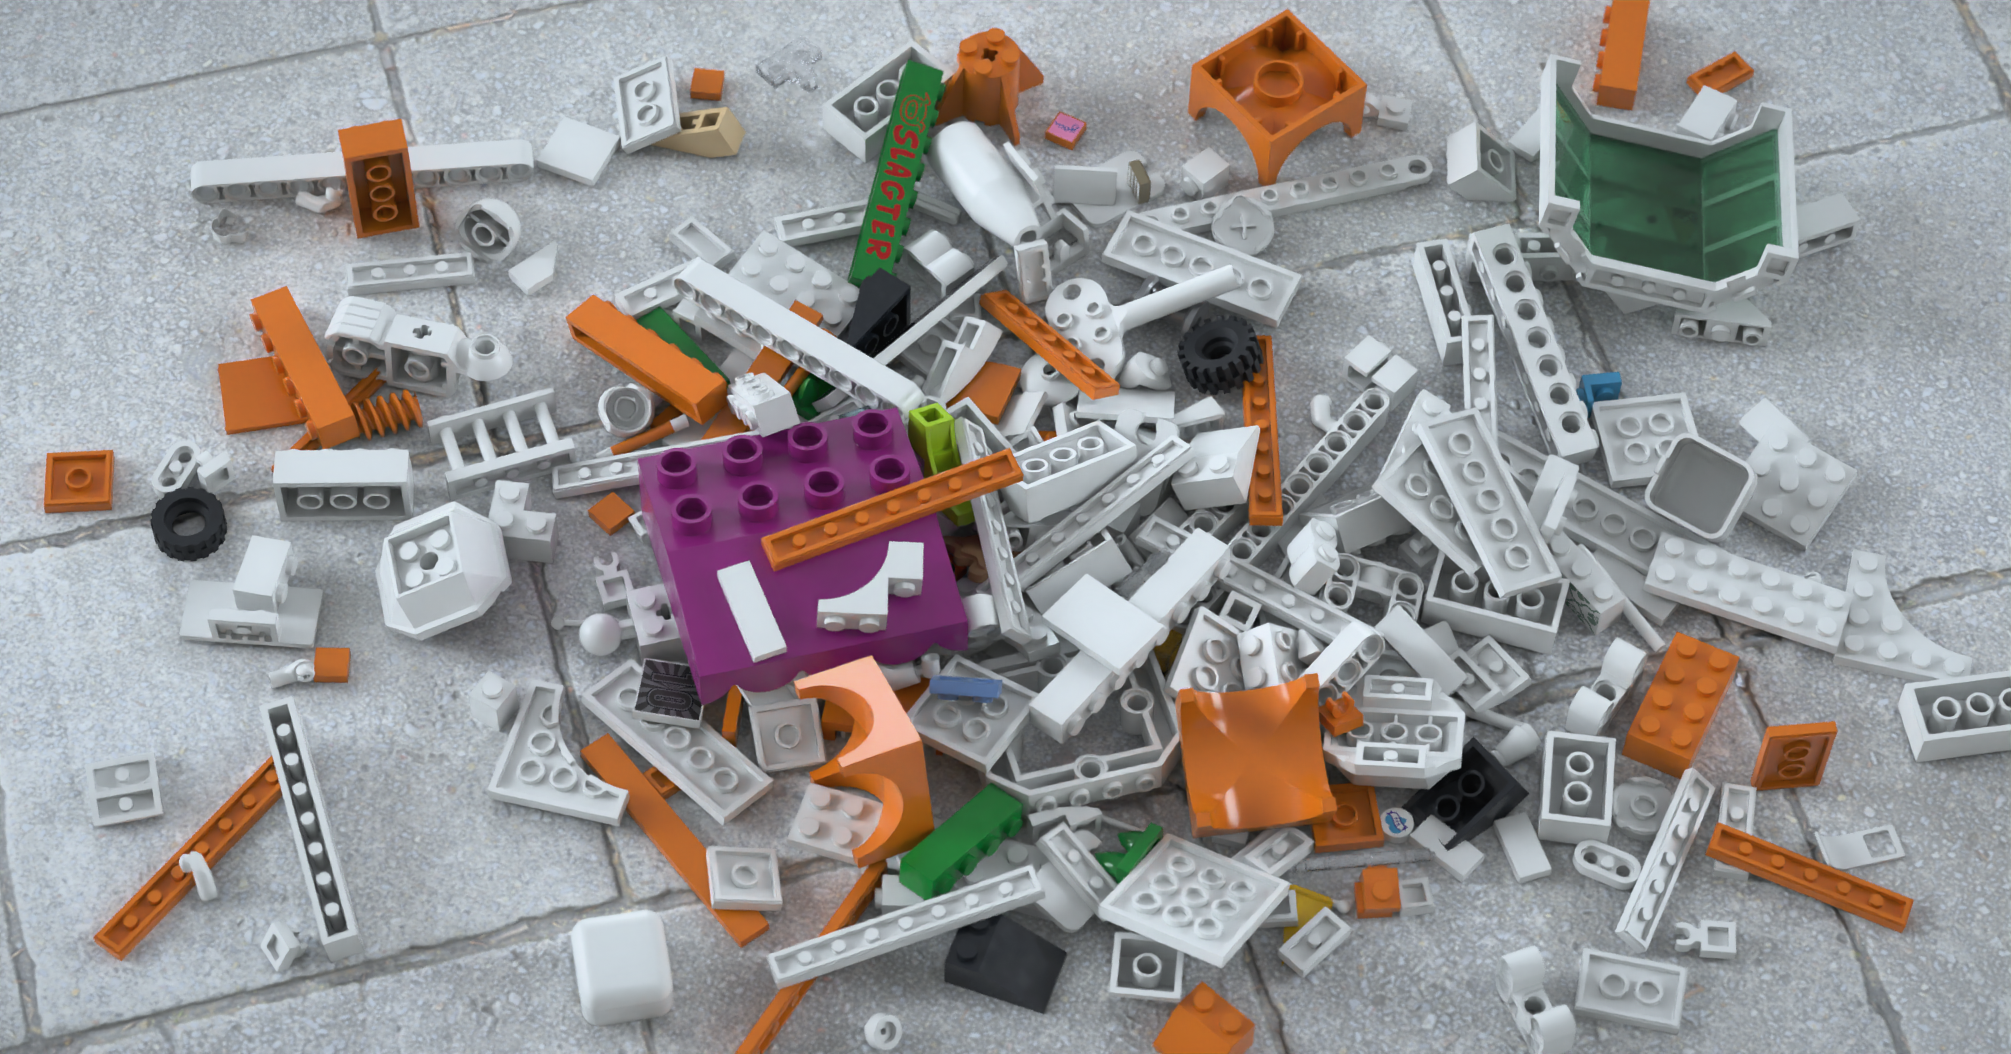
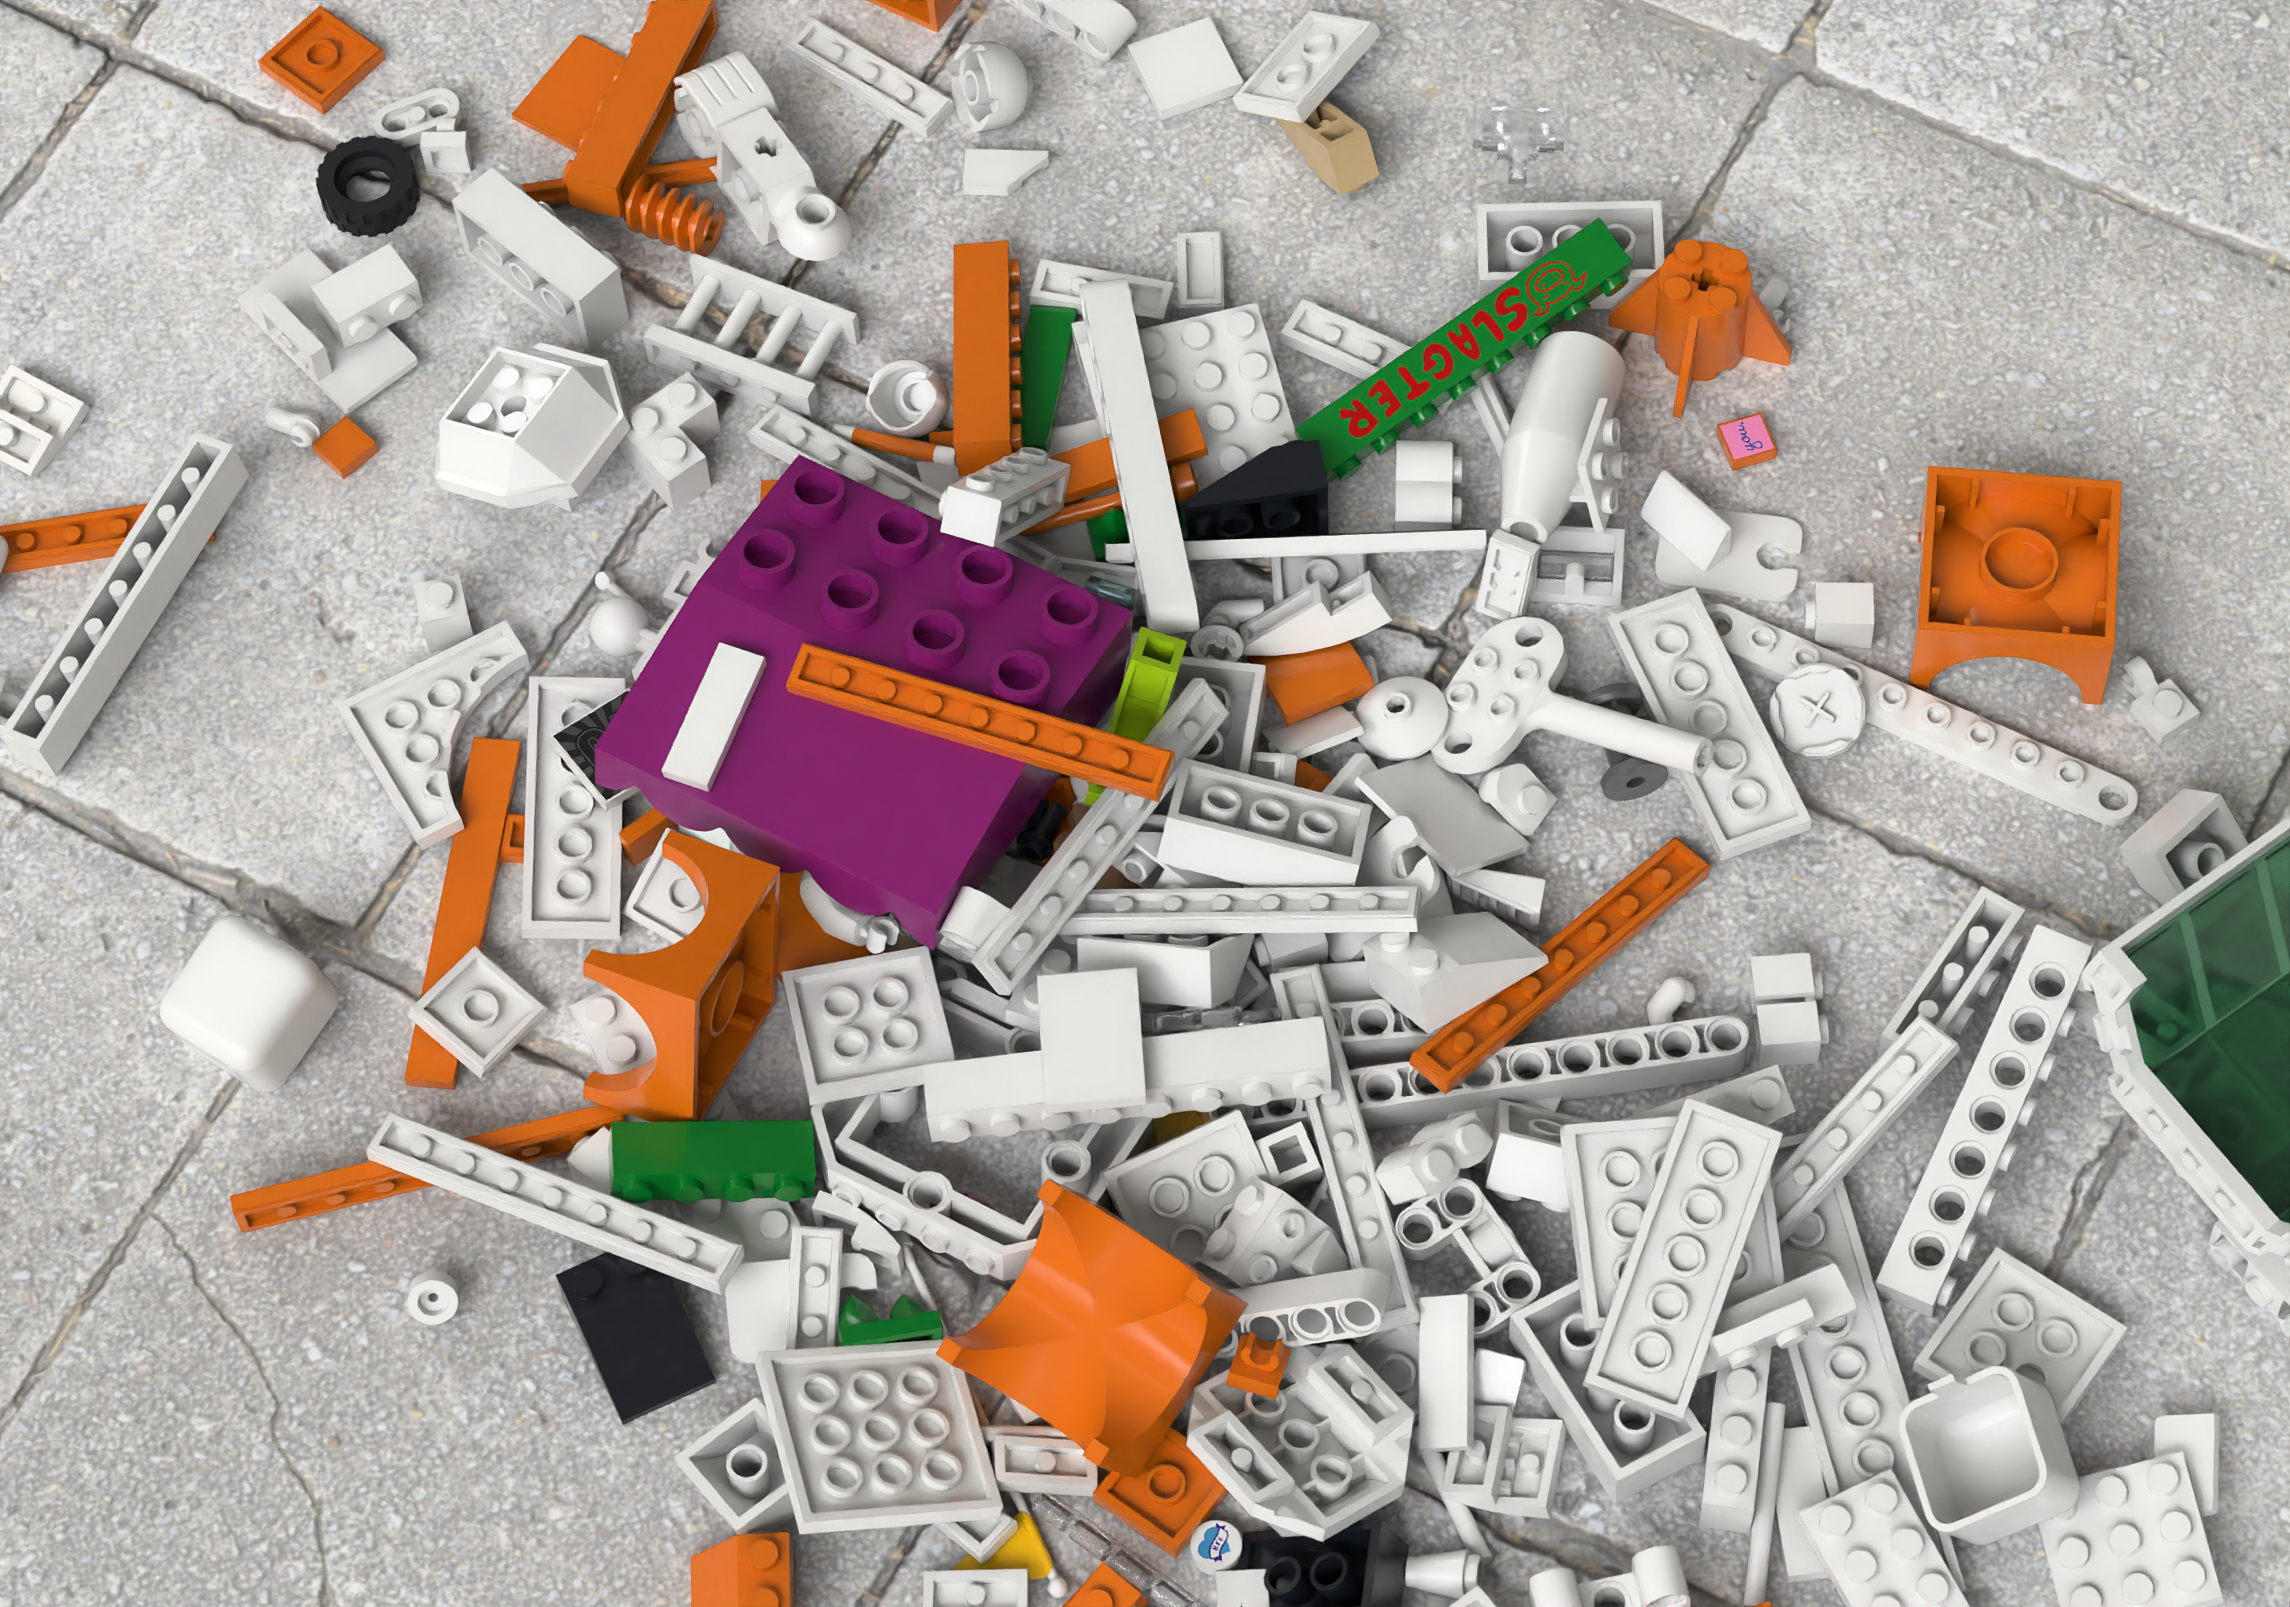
camera: 50 degrees right, 5 degrees up
(707, 84) = (1405, 91): orange tile -> none
(869, 605) = (835, 812): white arch -> none
(951, 687) = (879, 988): medium blue plate -> none
(969, 307) = (1402, 569): white tile -> none
(1049, 344) = (1428, 677): orange tile -> none
(1129, 552) = (1259, 975): white arm -> none
(1139, 181) = (1752, 564): dark tan tile -> none
(1219, 338) = (1611, 816): black tyre -> none
(1598, 388) = (2024, 1235): dark azure bracket -> none

